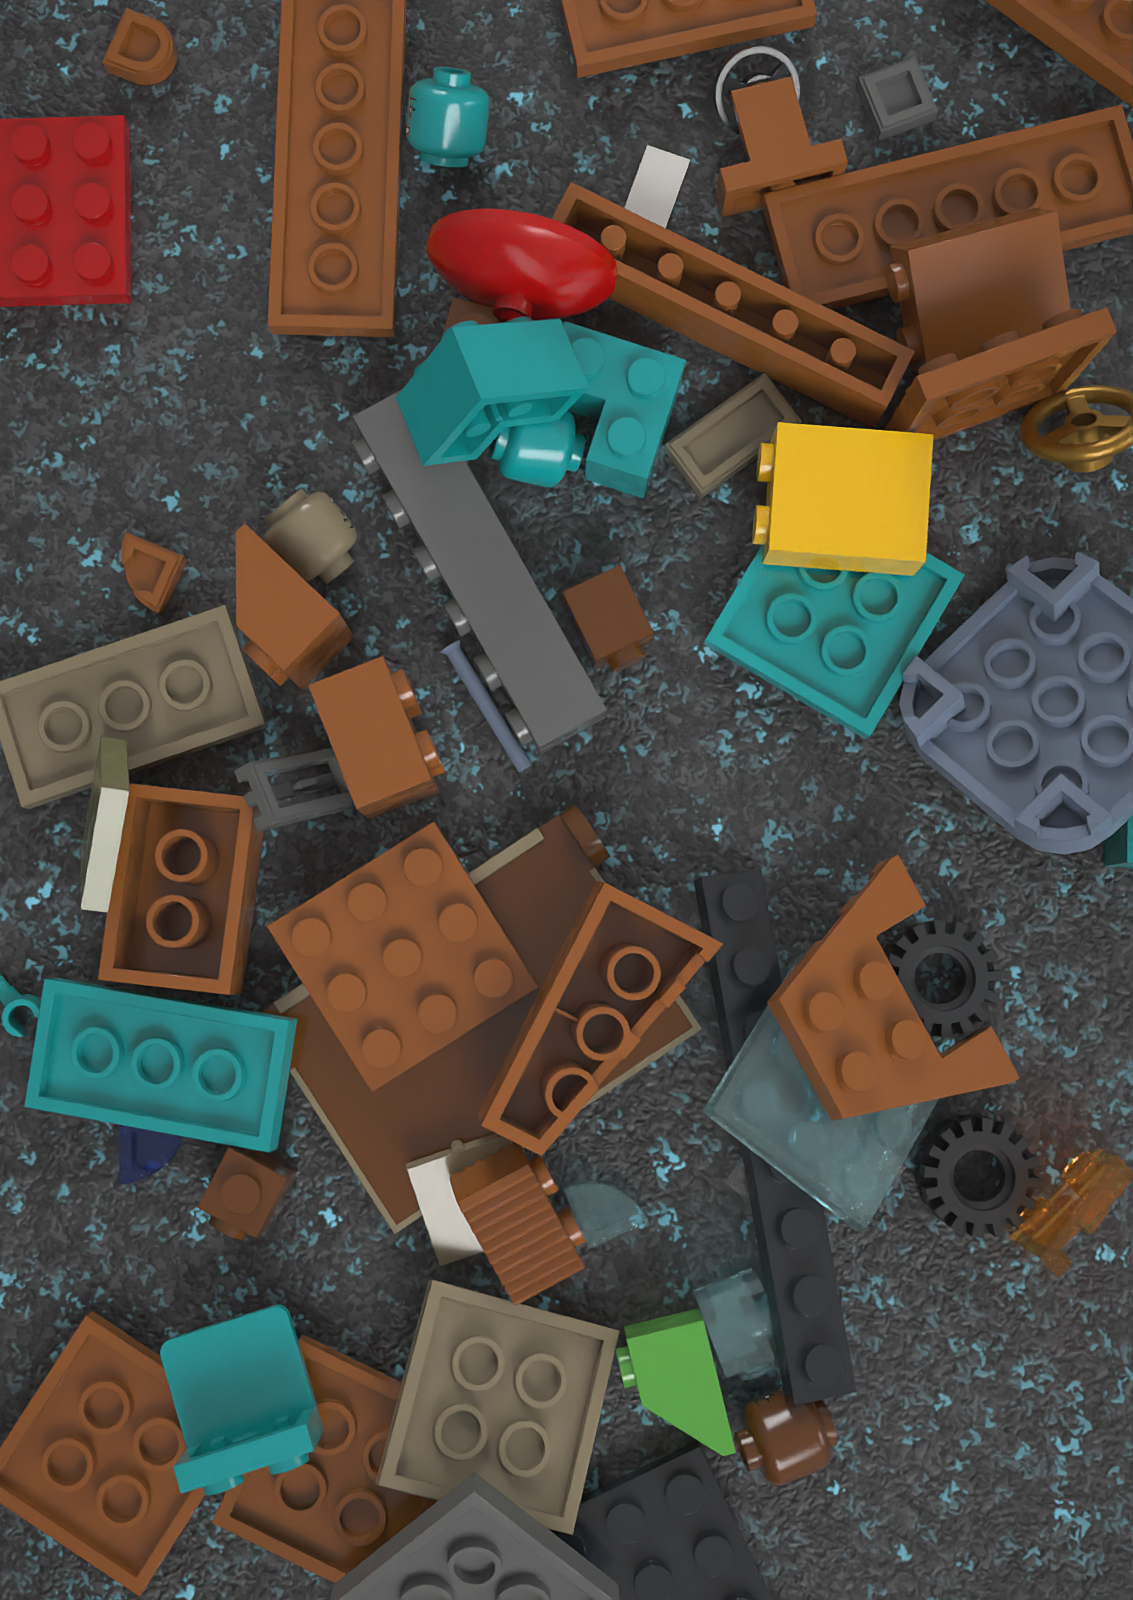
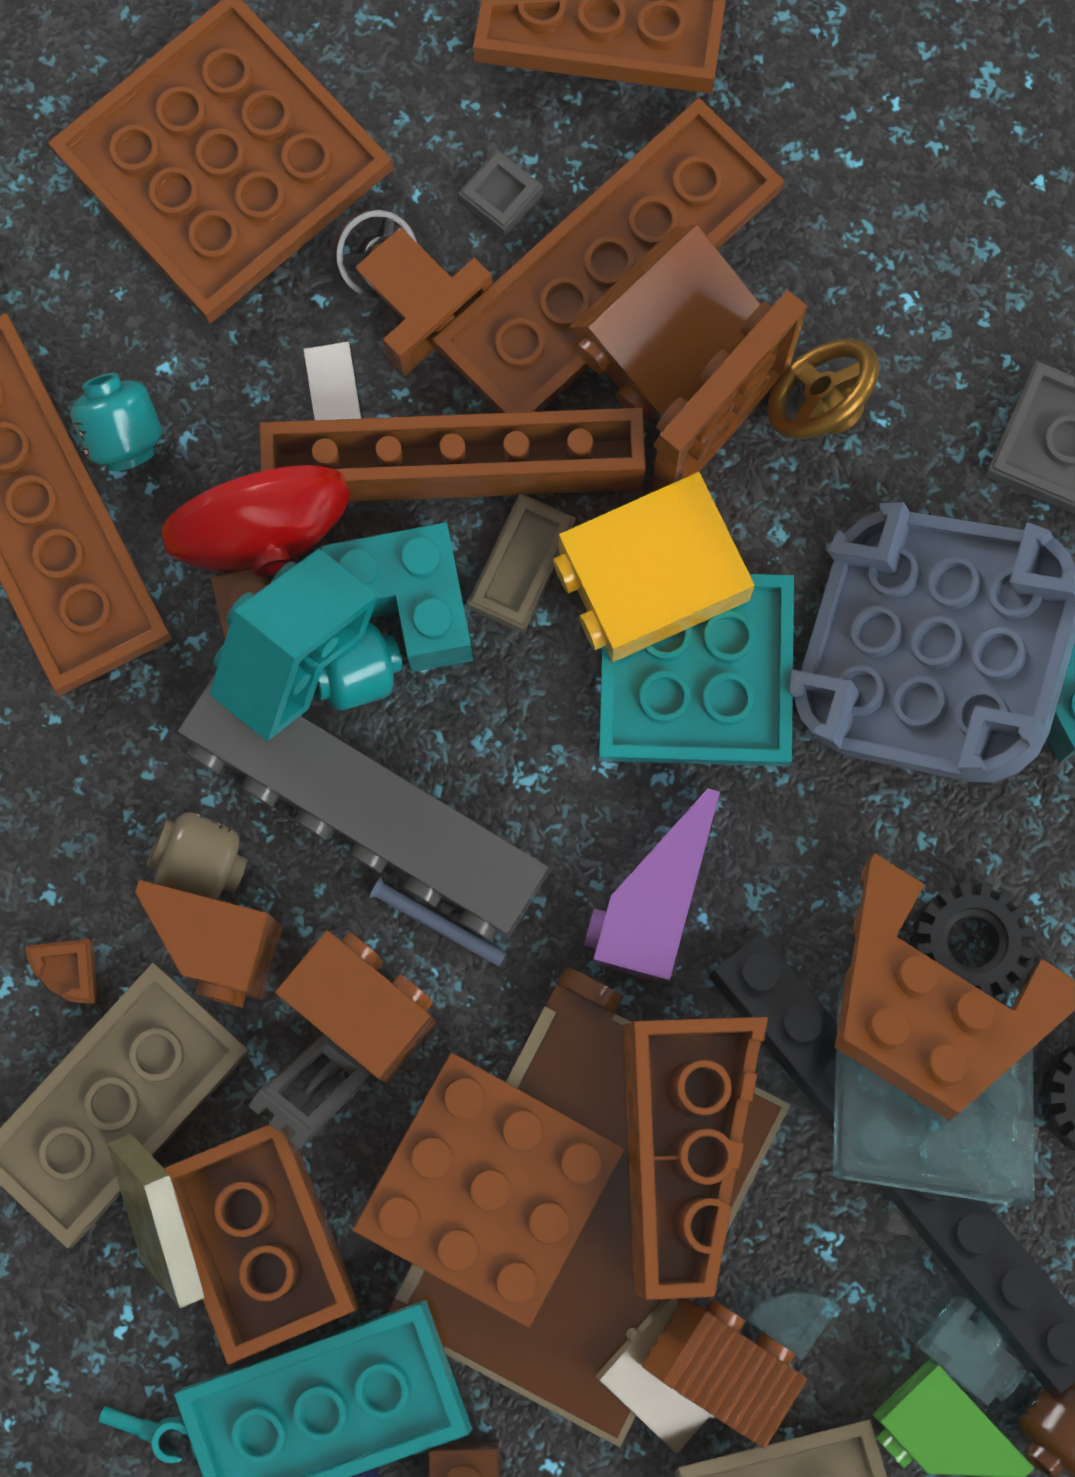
camera: 25 degrees left, 5 degrees down
(608, 620) = (504, 786): reddish brown brick -> none
(677, 792) = (652, 904): none -> medium lavender slope

